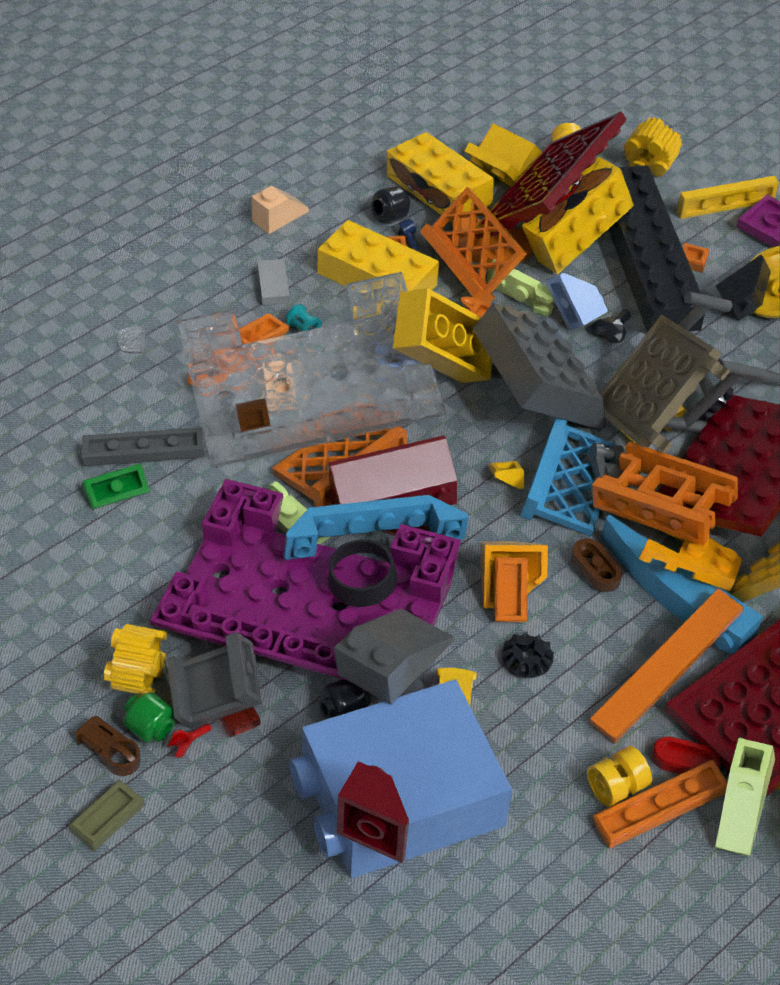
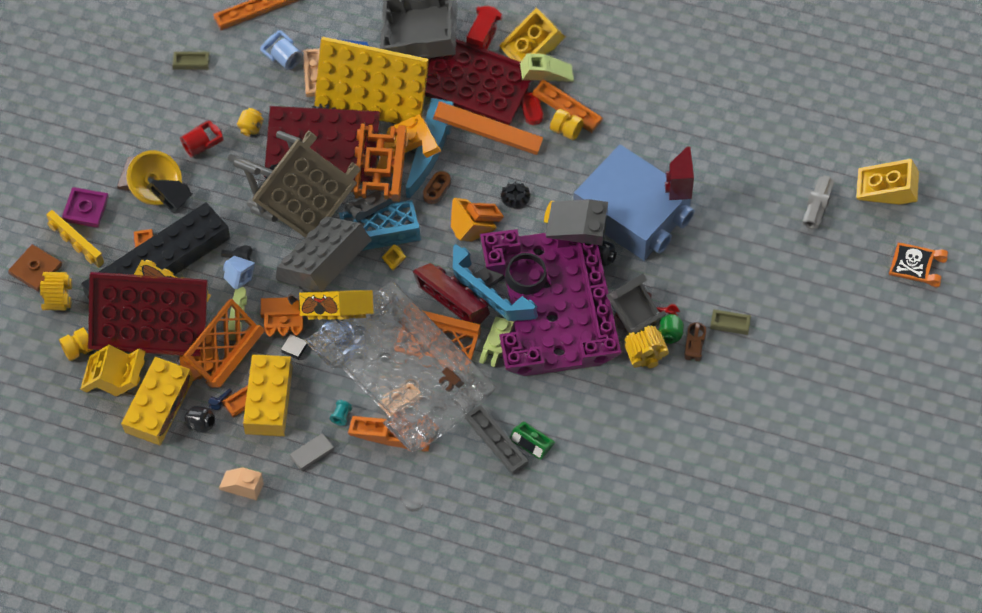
camera: 115 degrees left, 10 degrees up
(708, 160) = (32, 265): none -> dark orange plate

